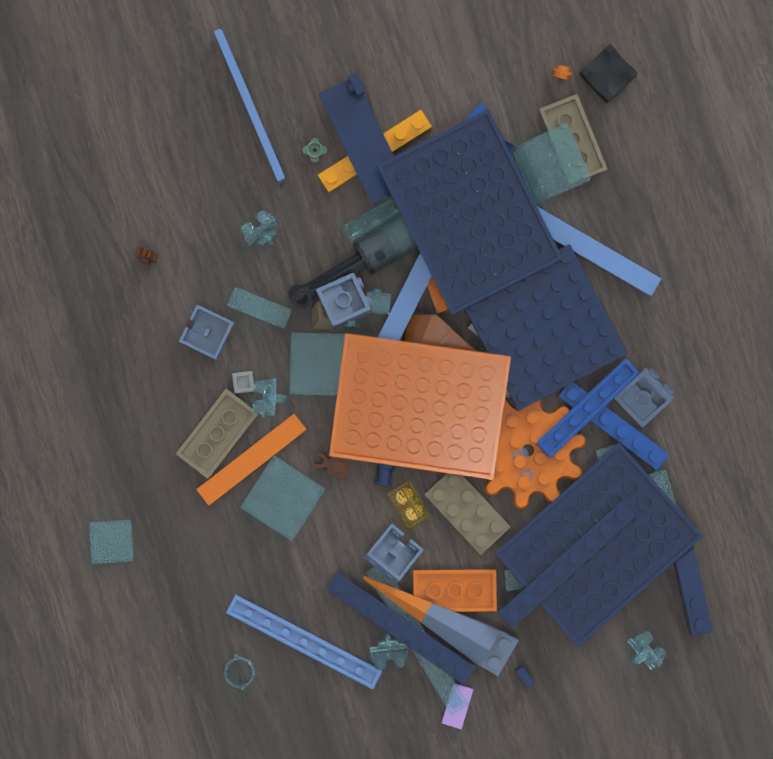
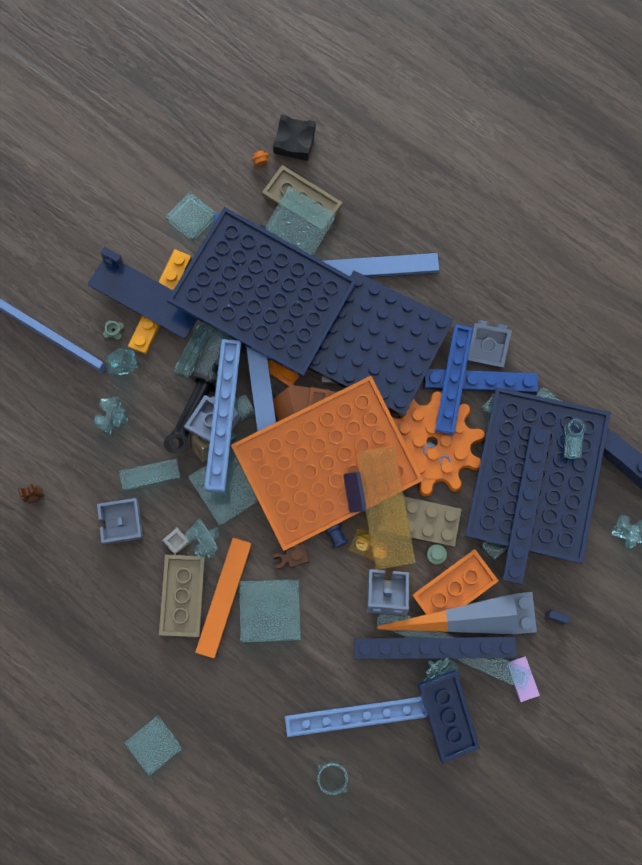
camera: 35 degrees left, 10 degrees down
(301, 188) = (121, 362): none -> clear light blue brick
(356, 303) = (222, 416): none -> medium blue tile
(370, 690) = (448, 716): none -> dark blue plate
(424, 449) = (354, 492): none -> dark blue slope
(442, 480) = (385, 508): none -> clear yellow plate
(458, 86) = (191, 216): none -> clear light blue tile
(460, 551) = (436, 554): none -> sand green plate
(647, 539) = (574, 441): none -> clear light blue piece

